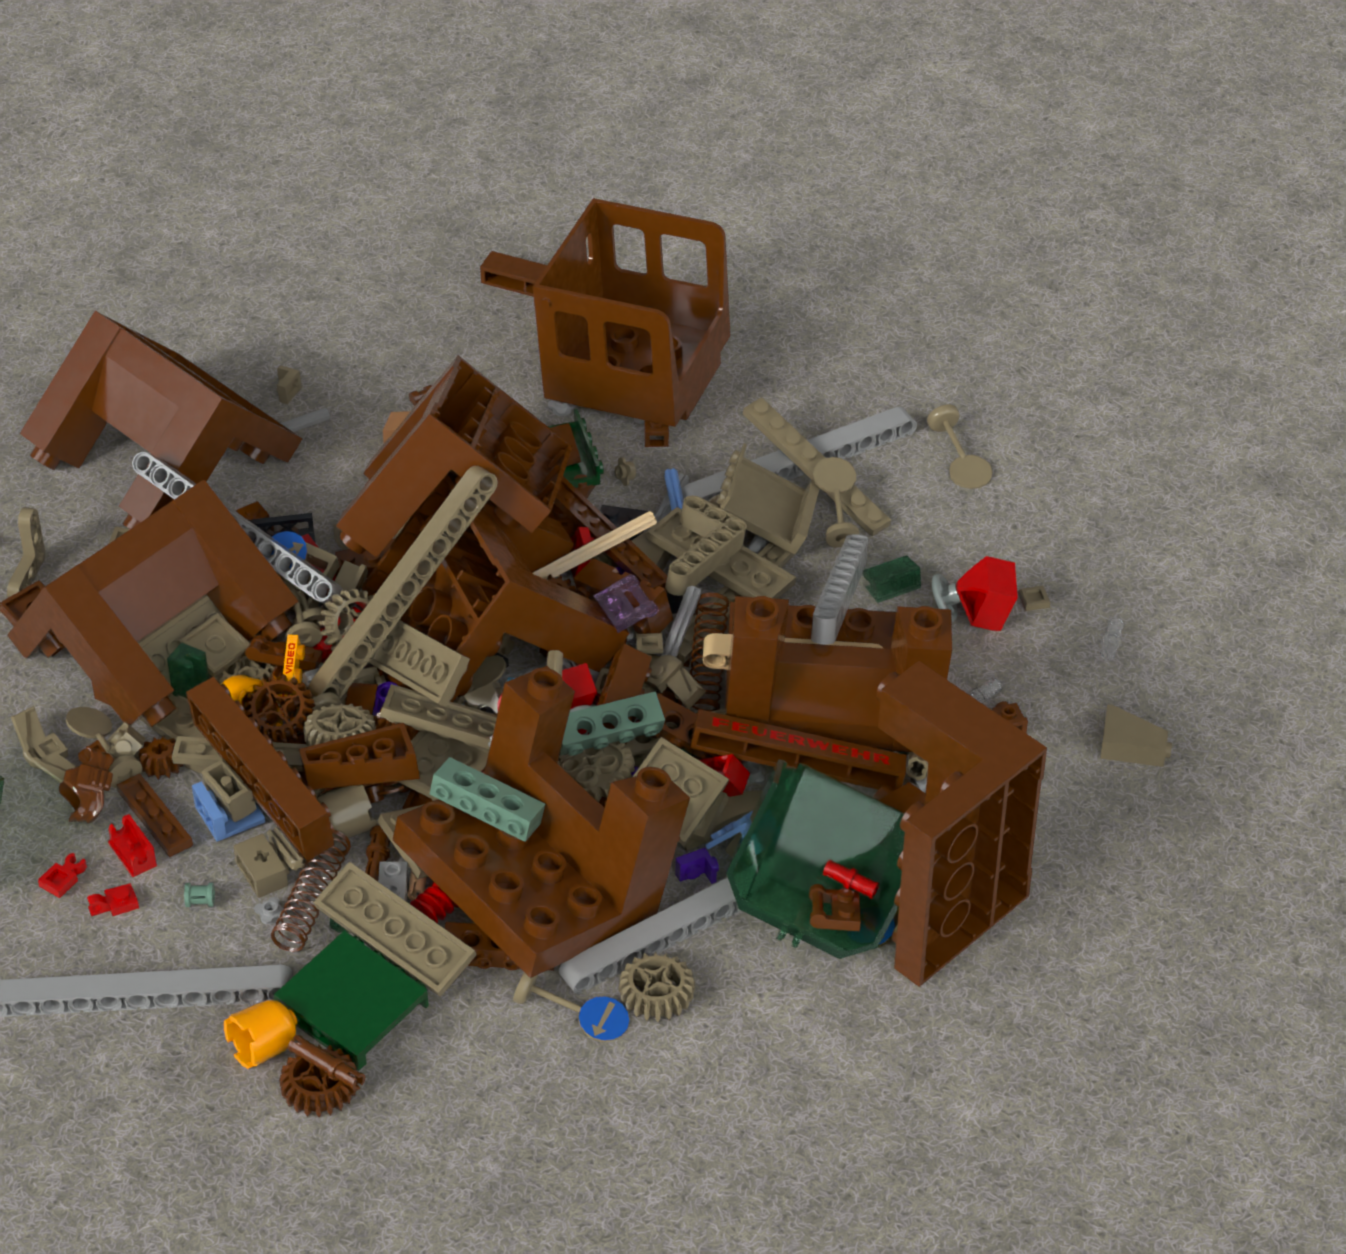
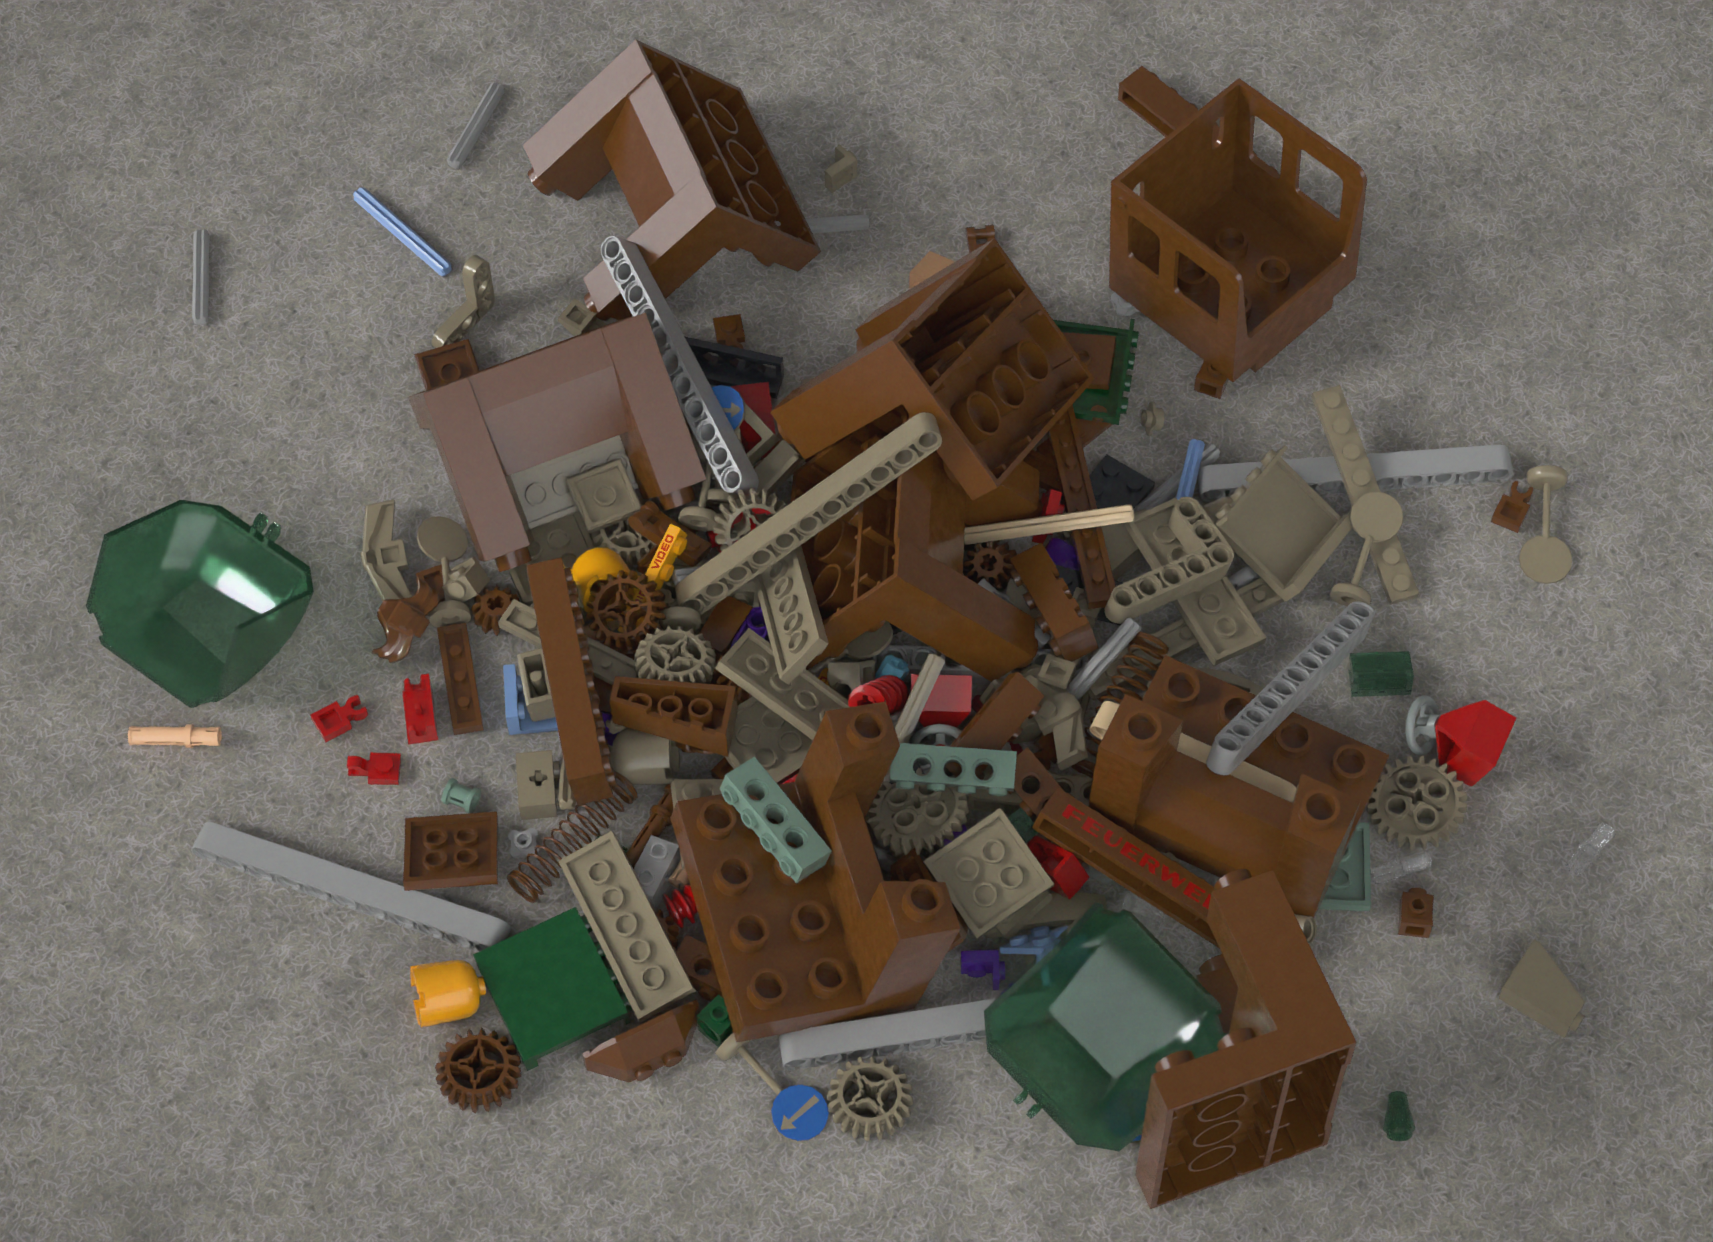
camera: 25 degrees right, 15 degrees up
(187, 669) = (560, 519): clear green hinge -> none
(213, 932) = (451, 851): none -> reddish brown plate
(335, 1067) = (492, 1070): reddish brown pin -> none
(450, 1014) = (646, 1047): none -> reddish brown wedge
(503, 976) = (715, 1021): none -> dark green brick
(618, 607) = (1028, 623): clear purple plate -> none
(844, 908) = (1106, 1090): reddish brown plate -> none
(851, 878) = (1130, 1054): red pin -> none
(928, 446) = (1512, 509): none -> reddish brown plate
(977, 651) = (1406, 824): none -> dark tan gear
(1034, 598) = (1531, 758): dark tan tile -> none
(1074, 858) = (1398, 1117): none -> clear green cone

